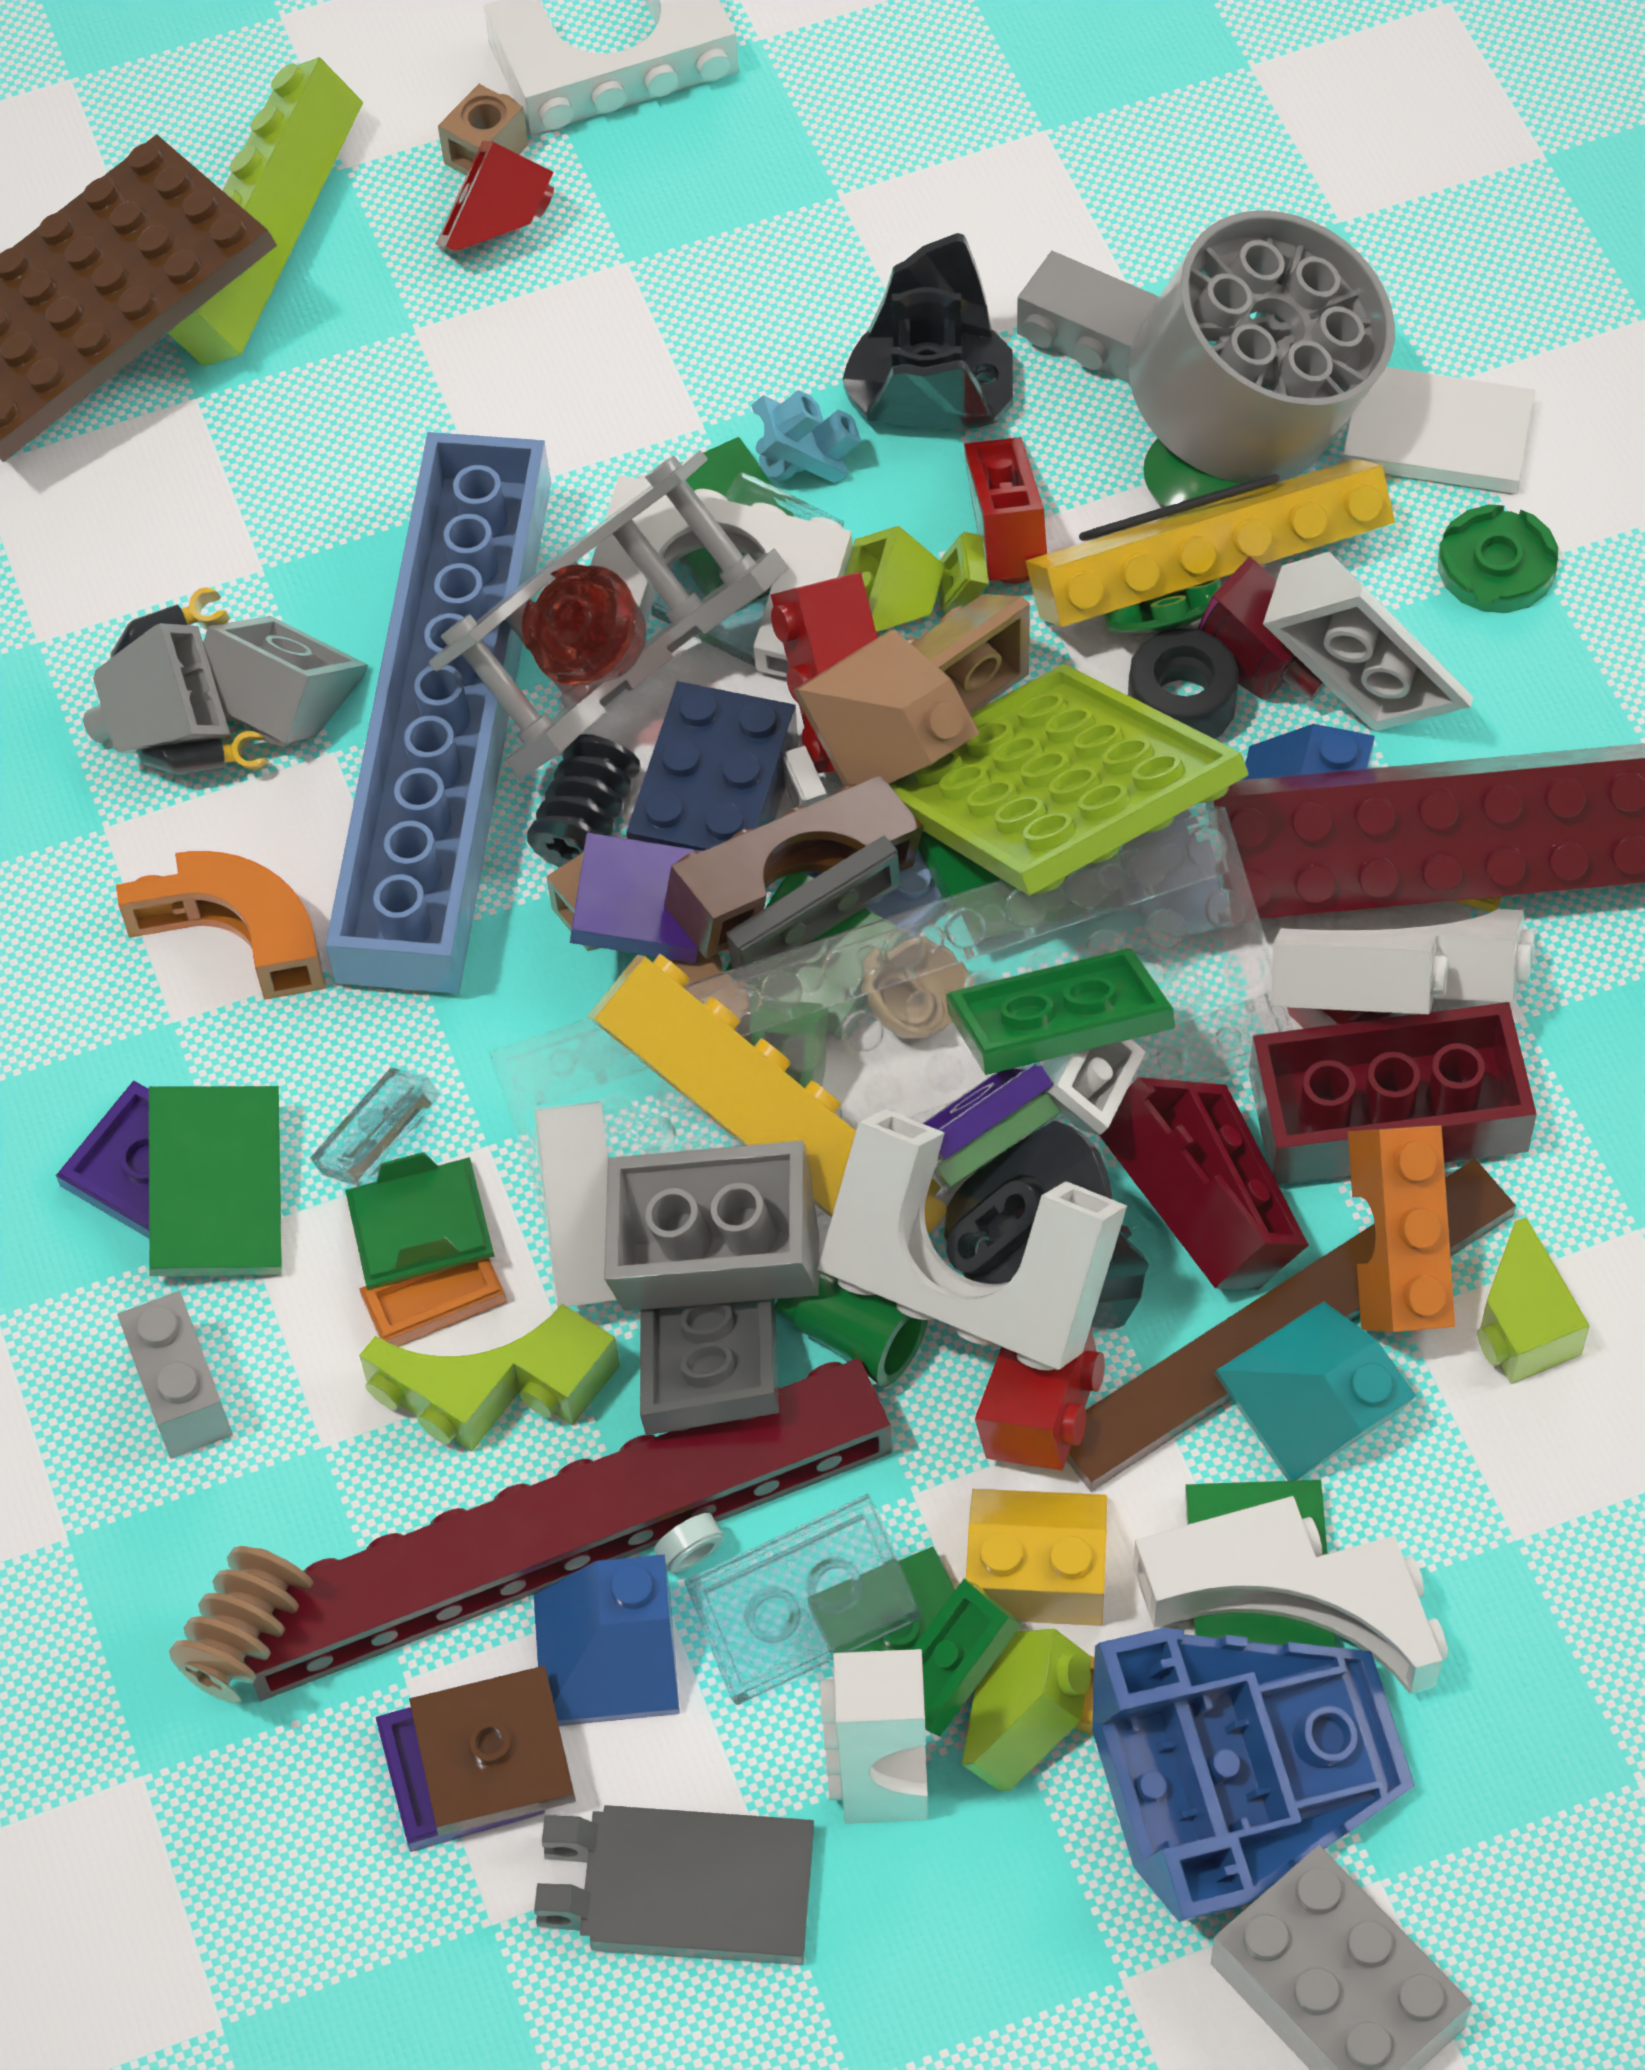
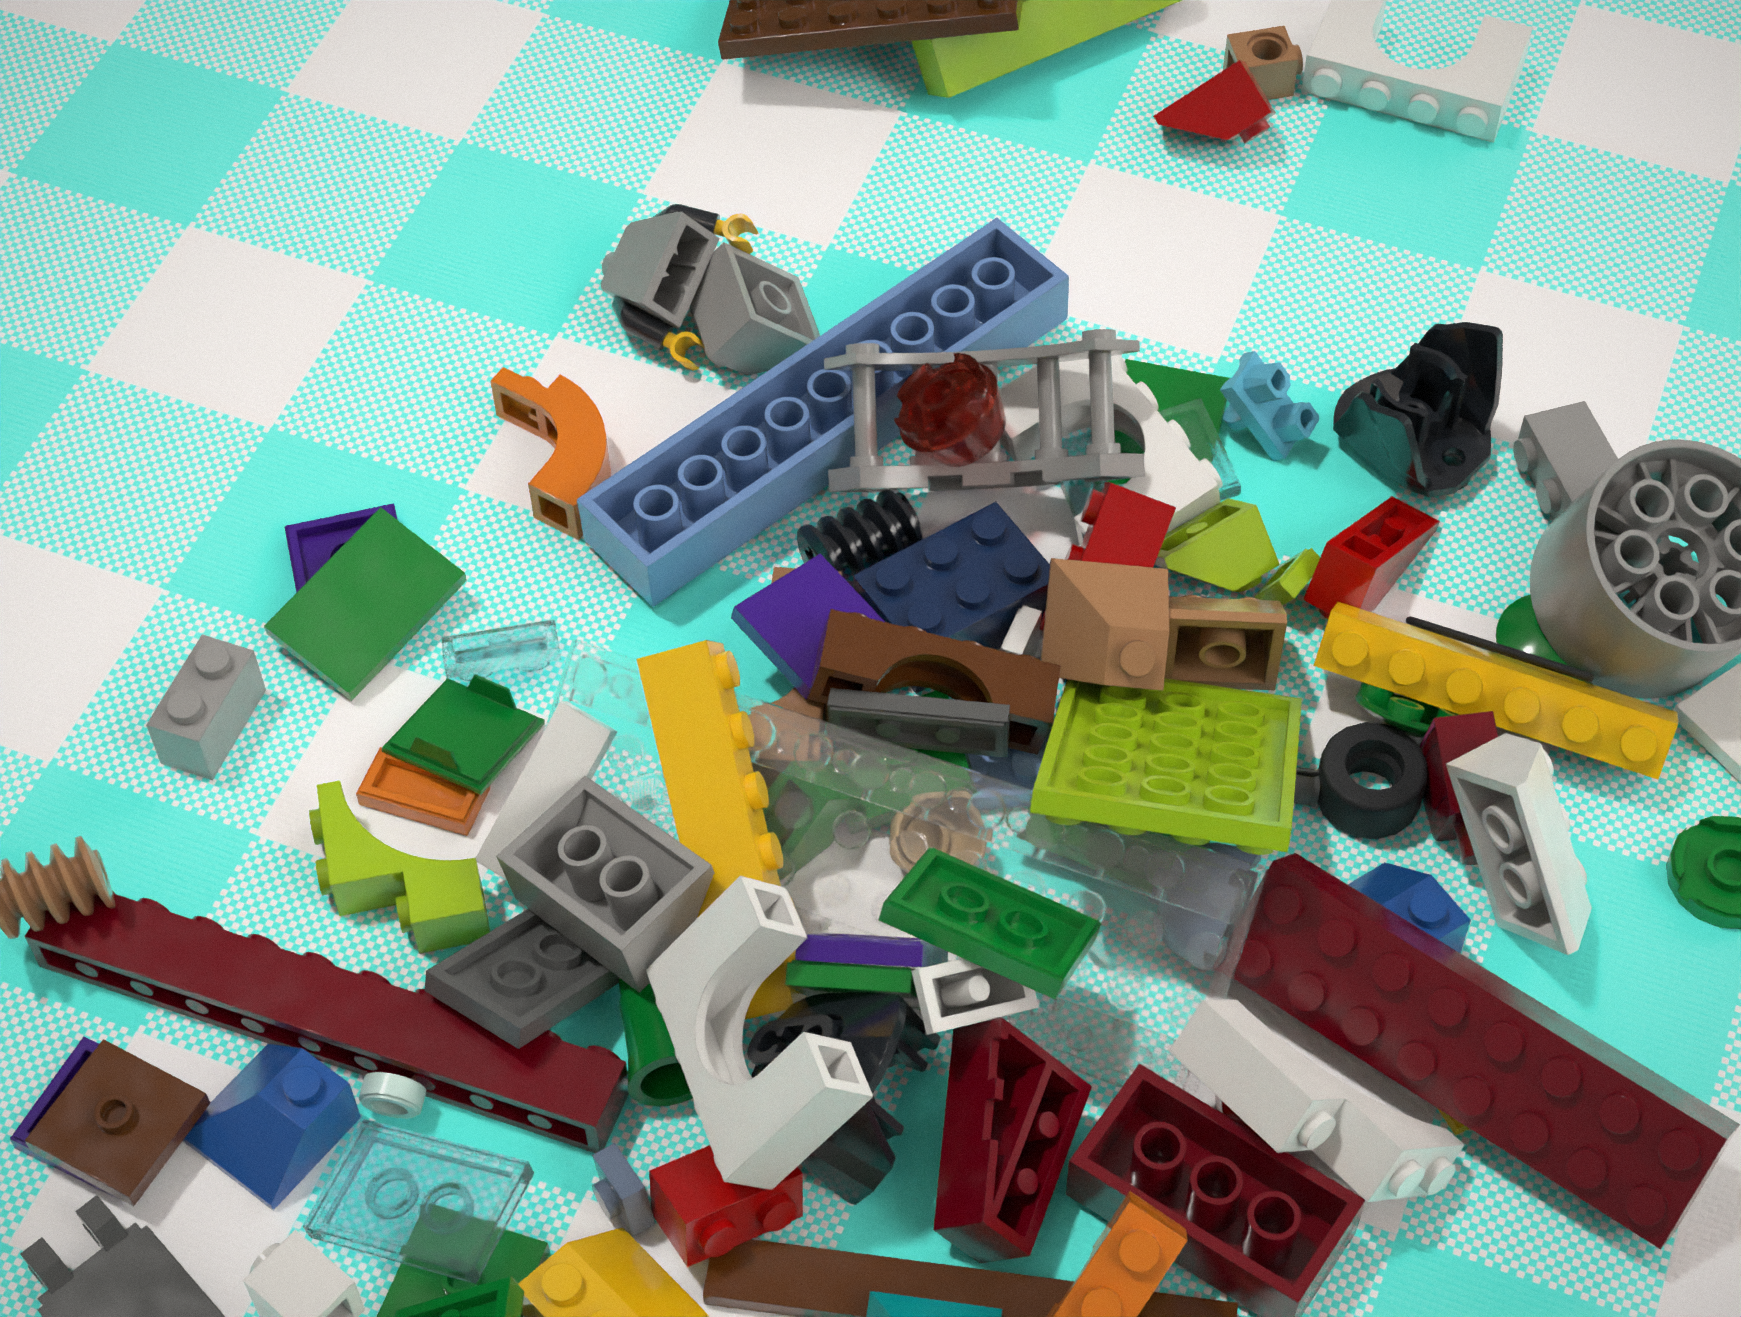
camera: 40 degrees right, 5 degrees down
(952, 1457) = (621, 1190): none -> sand blue plate

